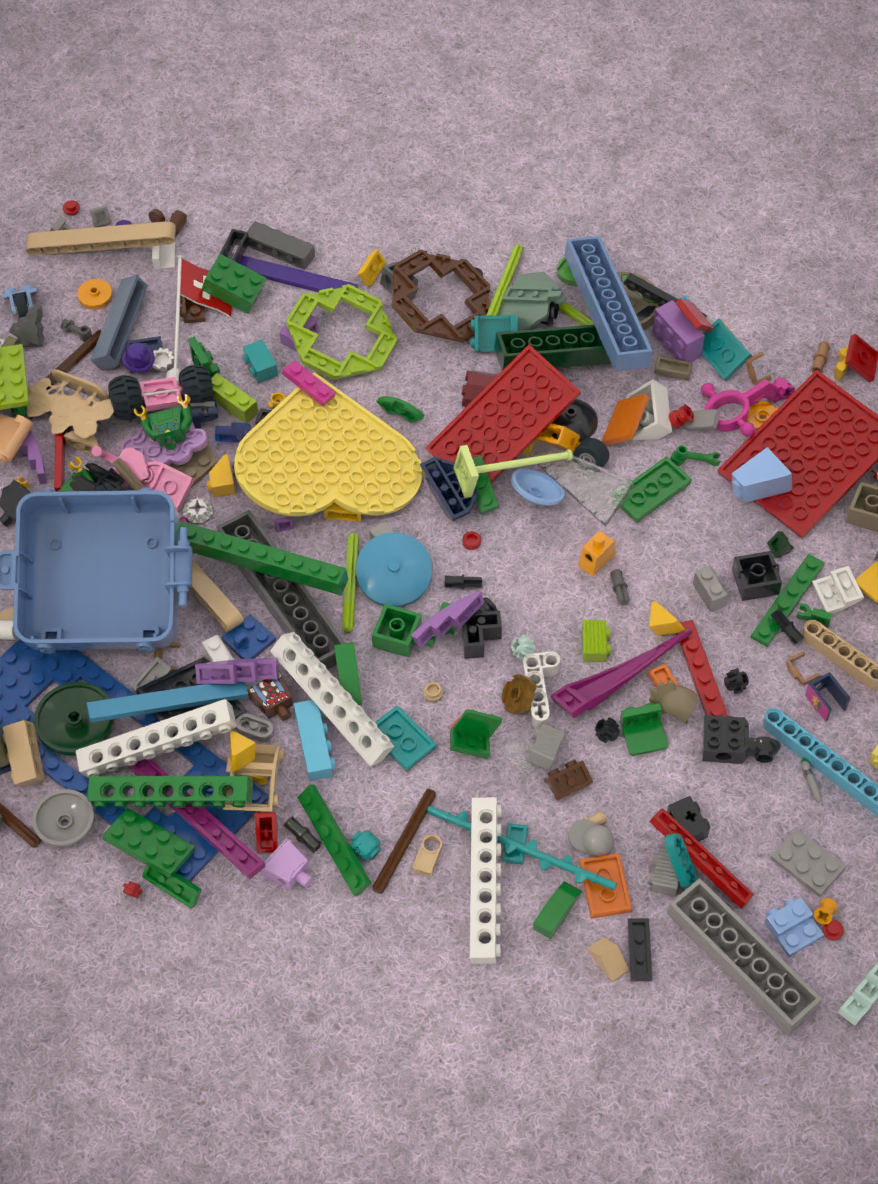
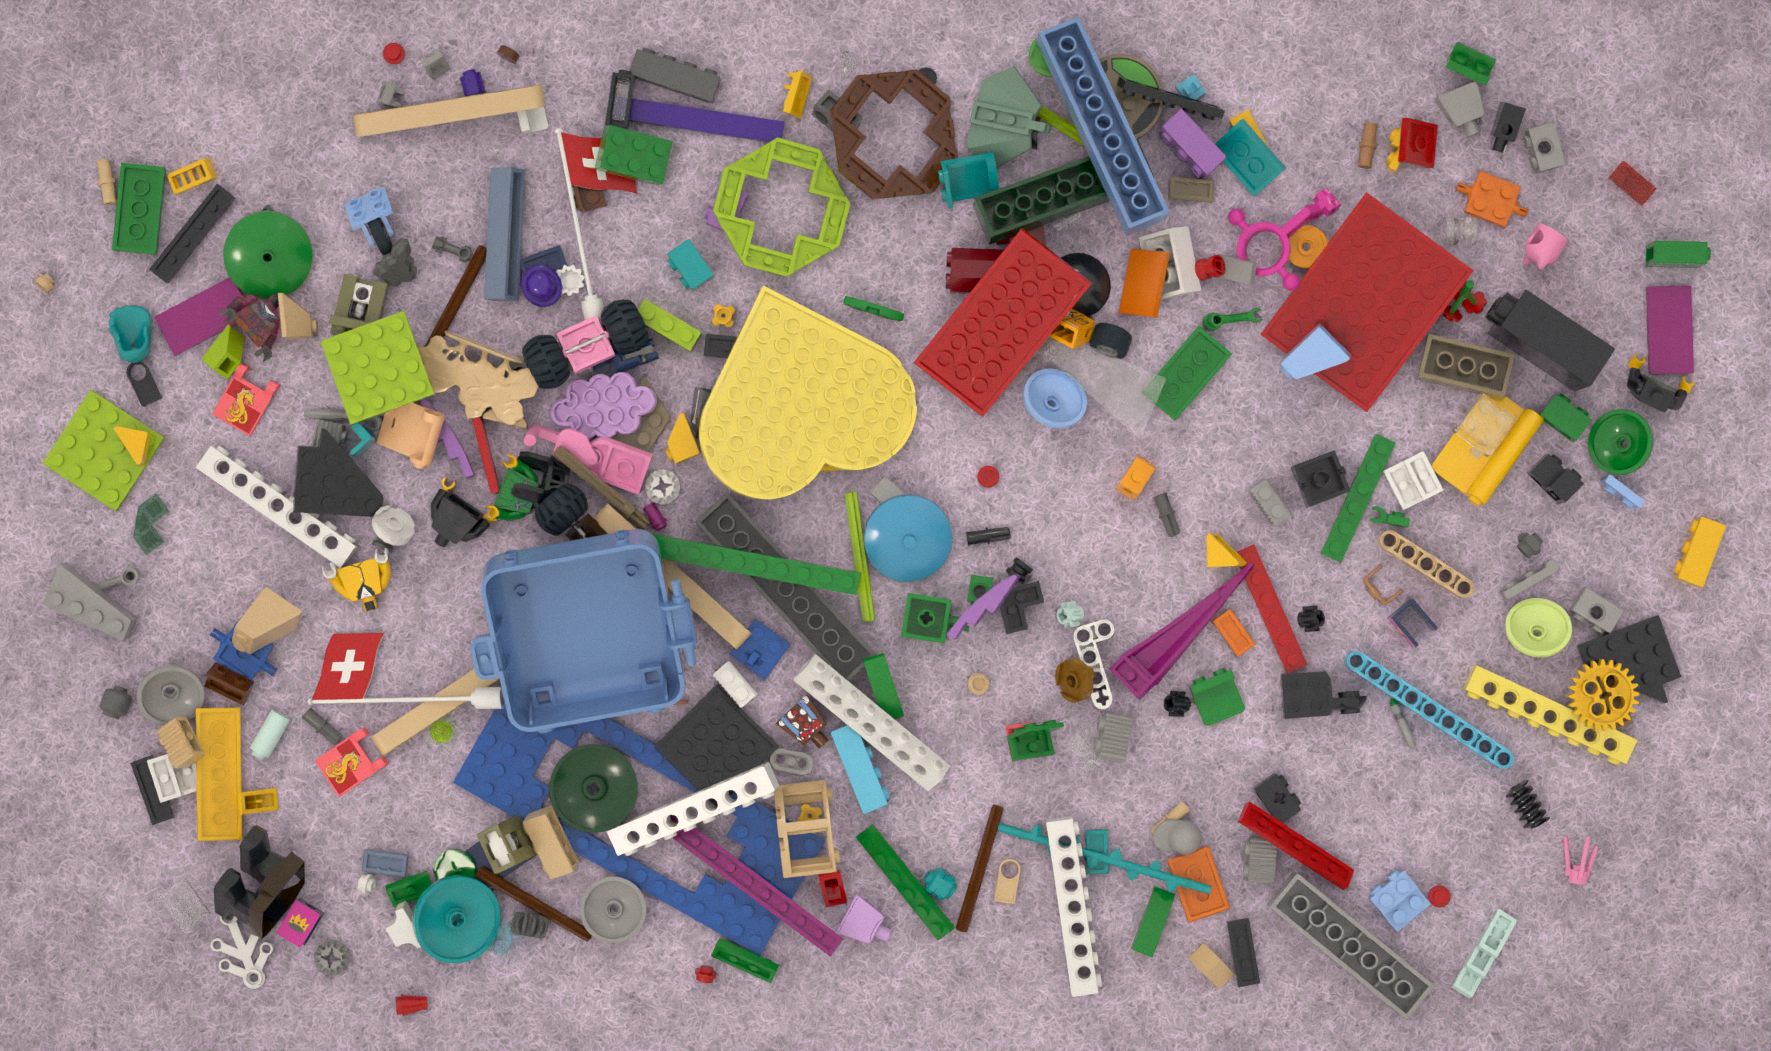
camera: 15 degrees left, 30 degrees up
(96, 300) = (459, 199): light orange plate -> none
(100, 786) = (800, 858): green brick -> none
(148, 843) = (712, 925): green plate -> none
(153, 671) = (665, 721): light grey plate -> none
(164, 700) = (692, 756): dark azure tile -> none
(168, 425) = (605, 391): torso -> none
(179, 219) = (535, 59): reddish brown cone -> none
(202, 357) = (626, 285): green plate -> none
(232, 433) = (688, 376): clear blue brick -> none
(237, 671) = (755, 708): medium lavender slope -> none
(241, 751) = (789, 813): yellow slope -> none
(302, 834) = (870, 880): pearl dark grey pin -> none
(308, 383) = (761, 307): dark pink plate -> none
(408, 738) = (956, 747): teal plate -> none
(446, 488) = (955, 418): dark blue wedge -> none
(468, 473) = (973, 407): yellowish green tile -> none
(487, 499) = (989, 405): green plate -> none
(505, 280) = (967, 89): lime axle -> none
(568, 779) = (1142, 768): reddish brown bracket -> none
(595, 640) = (1148, 591): lime brick -> none
(674, 700) = (1249, 662): dark tan piece -> none
(680, 860) = (1276, 858): teal beam -> none
(694, 315) = (1211, 129): red tile -> none
(750, 369) = (1294, 193): medium nougat piece -> none
(779, 544) = (1342, 427): dark green tile -> none
(787, 626) = (1361, 540): black axle -> none
(808, 862) = (1407, 822): light grey plate -> none
(825, 911) = (1430, 879): light orange bush -> none

